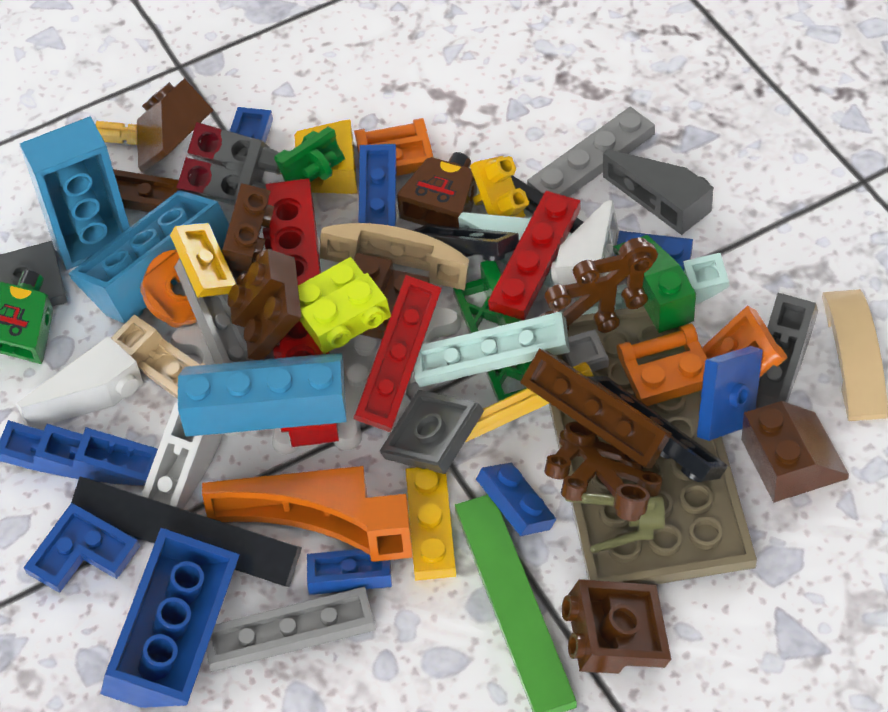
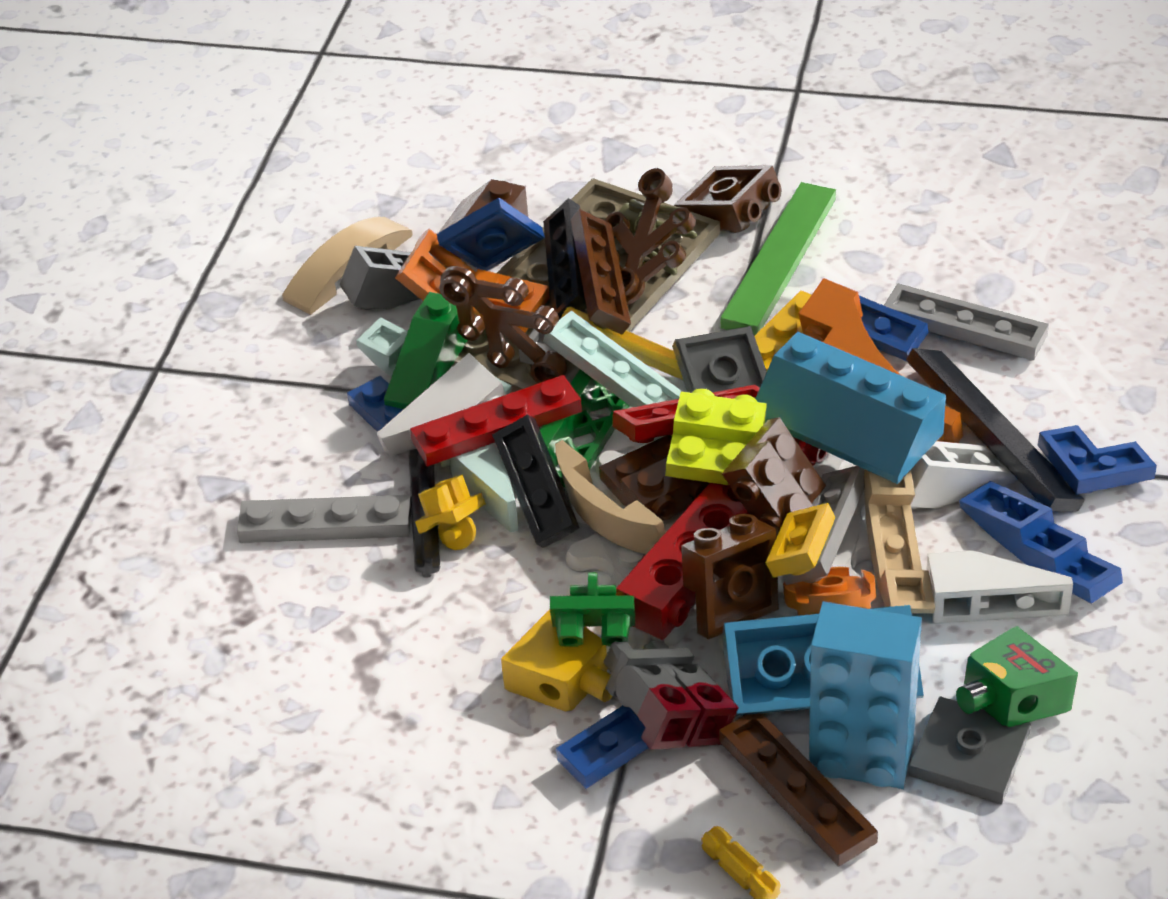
camera: 140 degrees left, 10 degrees down
(168, 121) = (688, 773): reddish brown slope -> none
(169, 622) = (1061, 358): blue slope -> none
(377, 184) = (553, 572): blue plate -> none
(410, 140) = (480, 621): orange plate -> none
(438, 192) = (494, 556): reddish brown torso -> none
(516, 499) = (708, 303): blue plate -> none
(661, 188) = (314, 435): dark grey slope -> none

